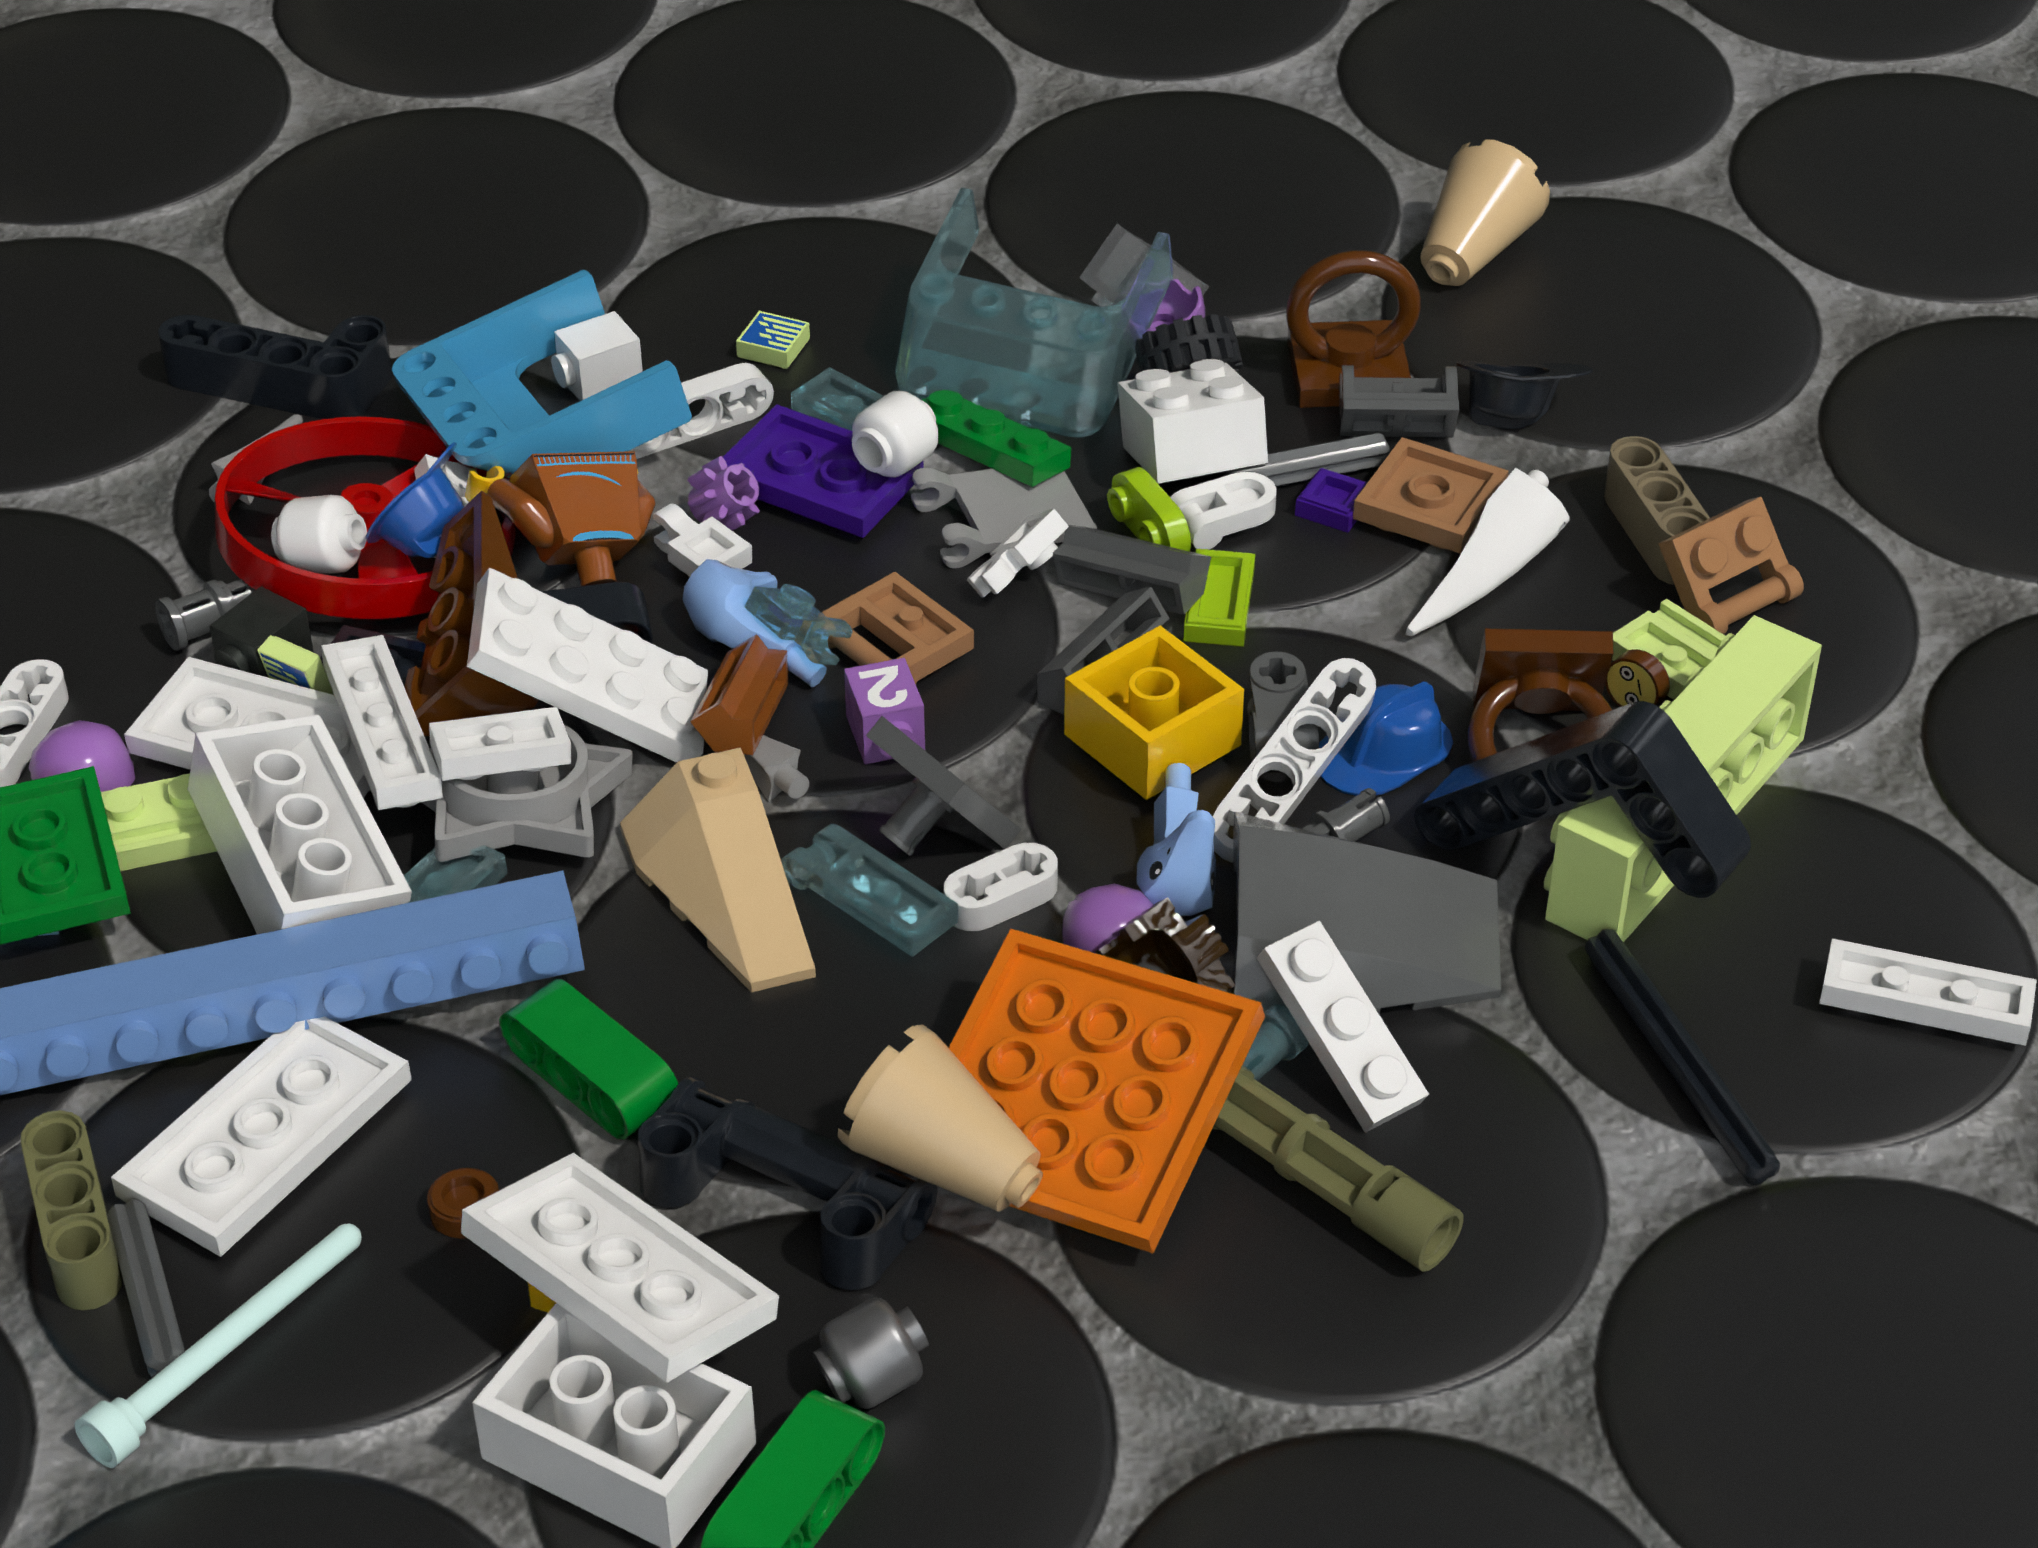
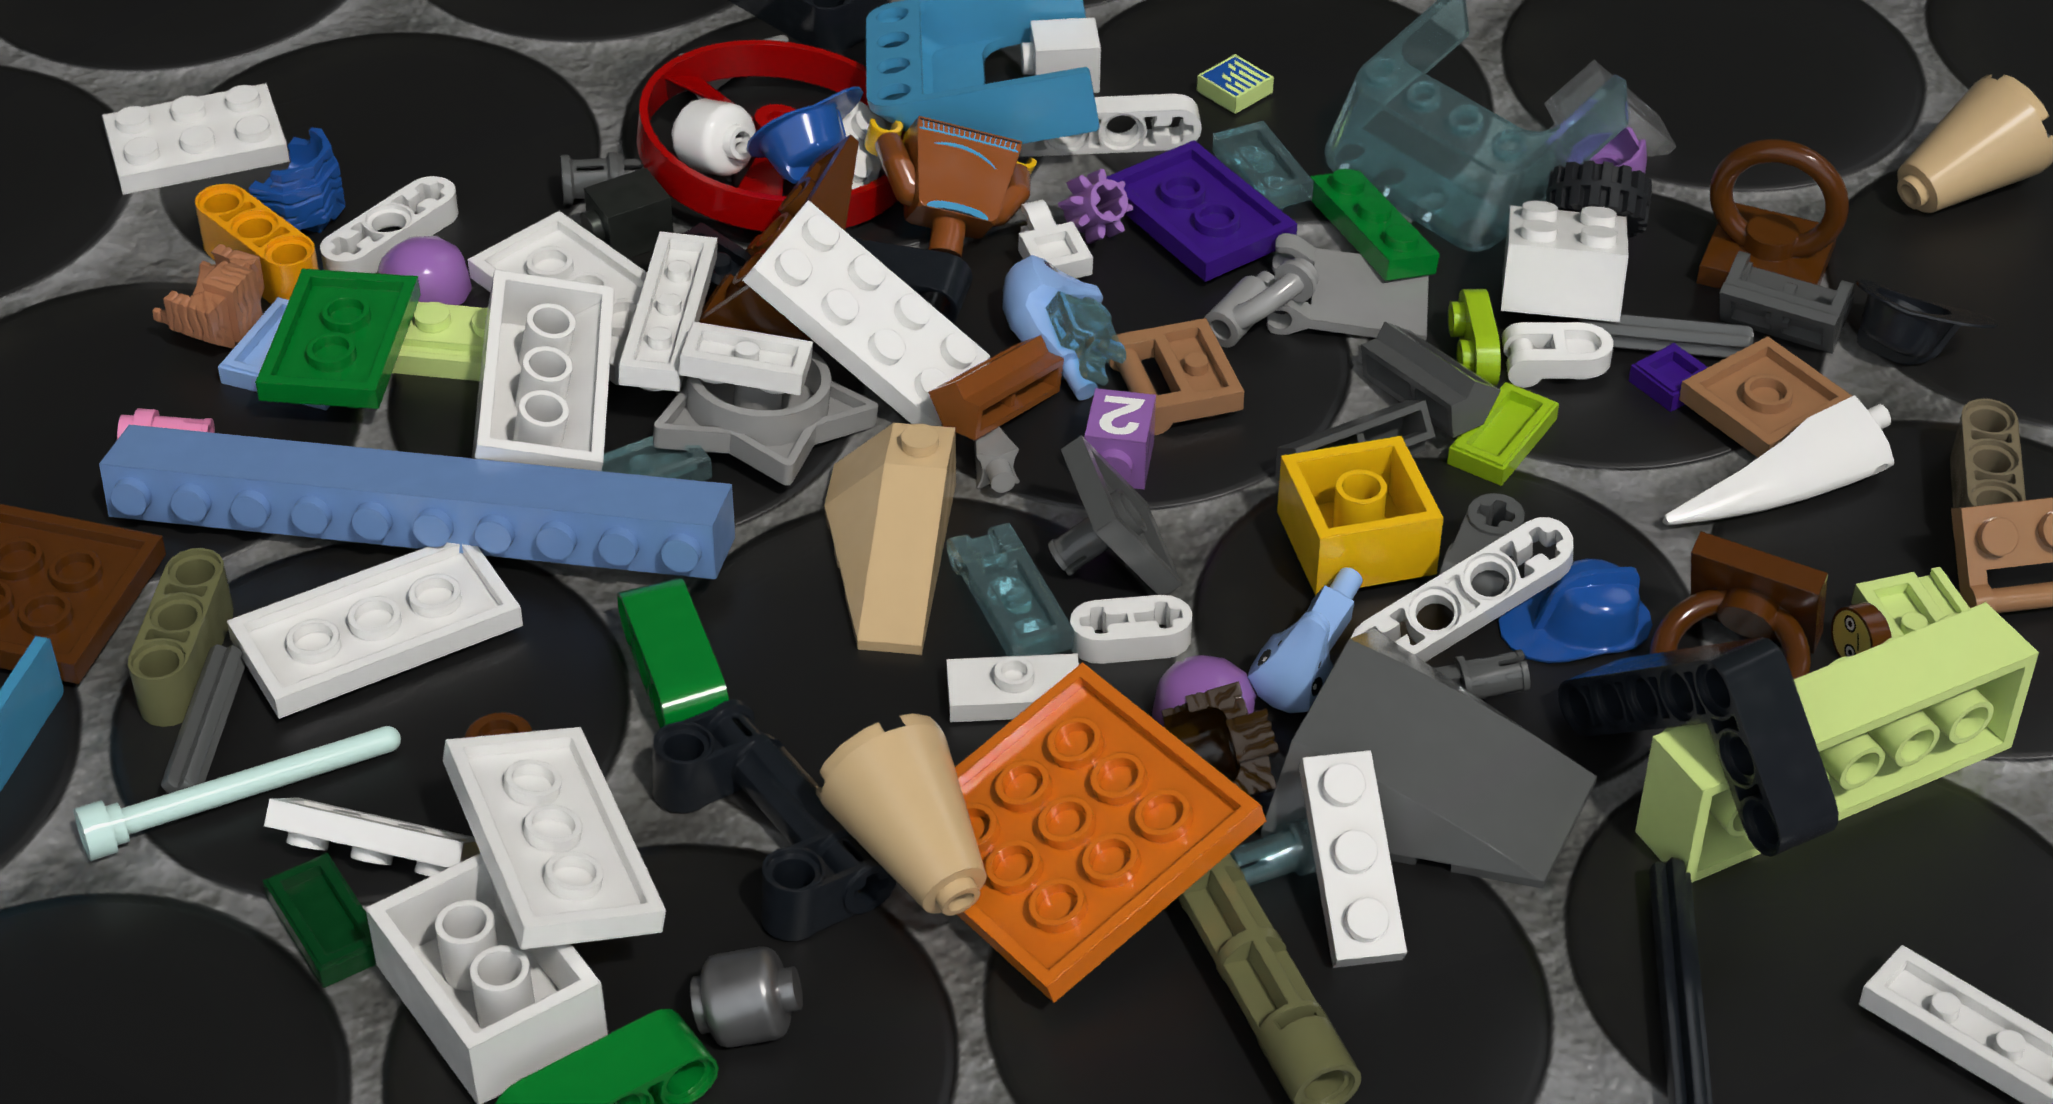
camera: 25 degrees right, 0 degrees up
(293, 664) = (633, 239): yellowish green tile -> none
(399, 1435) = (323, 919): none -> dark green tile
(405, 1336) = (371, 836): none -> white plate
(894, 434) = (1270, 193): white head -> none
(924, 977) = (1002, 685): none -> white plate
(925, 546) = (1260, 296): none -> light grey plant
(1027, 545) = (1343, 332): white plate -> none

